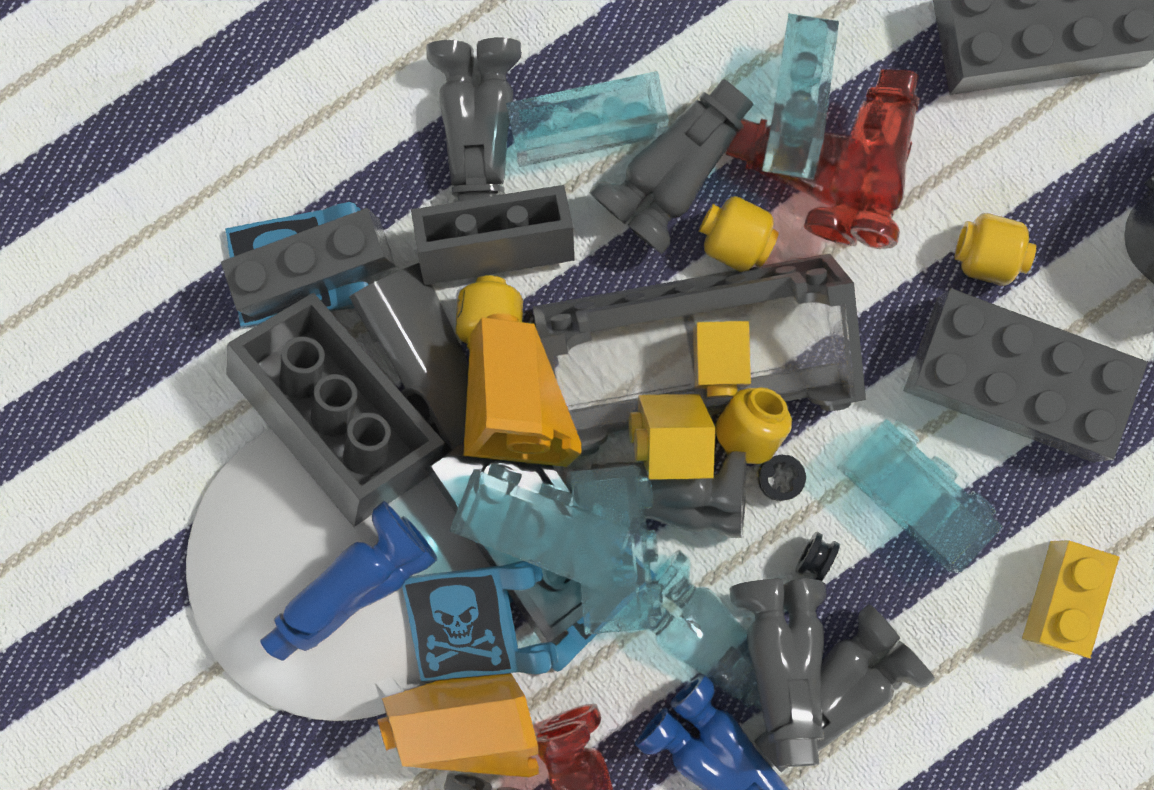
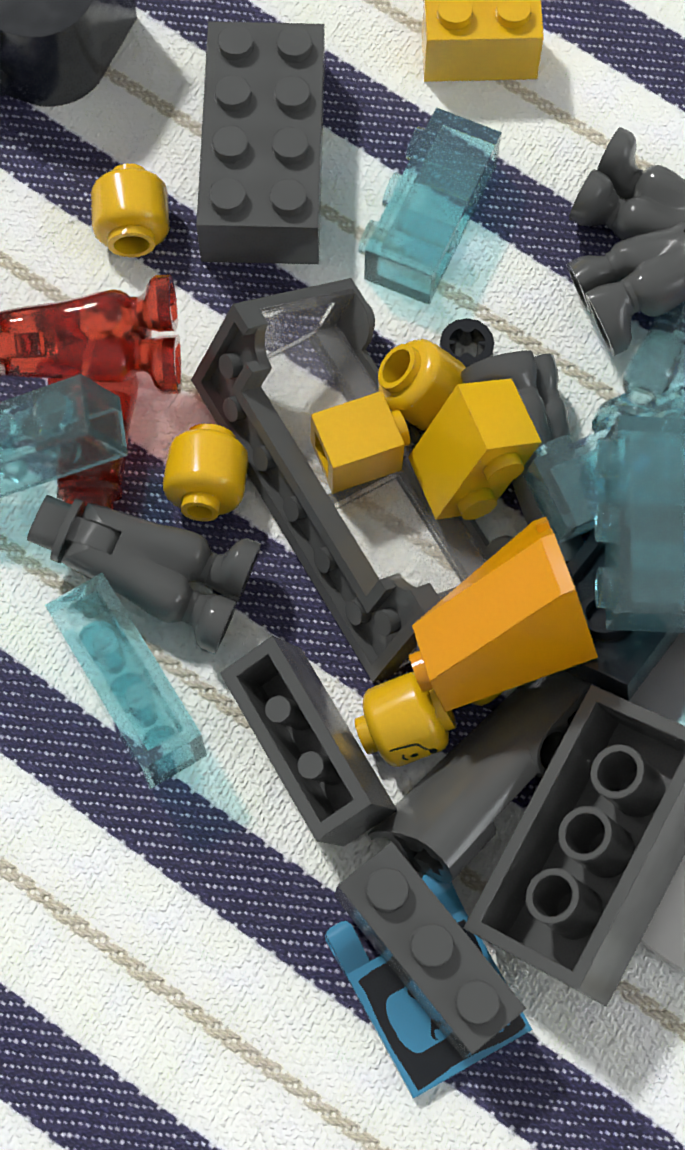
camera: 110 degrees left, 15 degrees down
(475, 116) = (166, 821): dark grey piece -> none
(817, 557) = (540, 283): black bush -> none

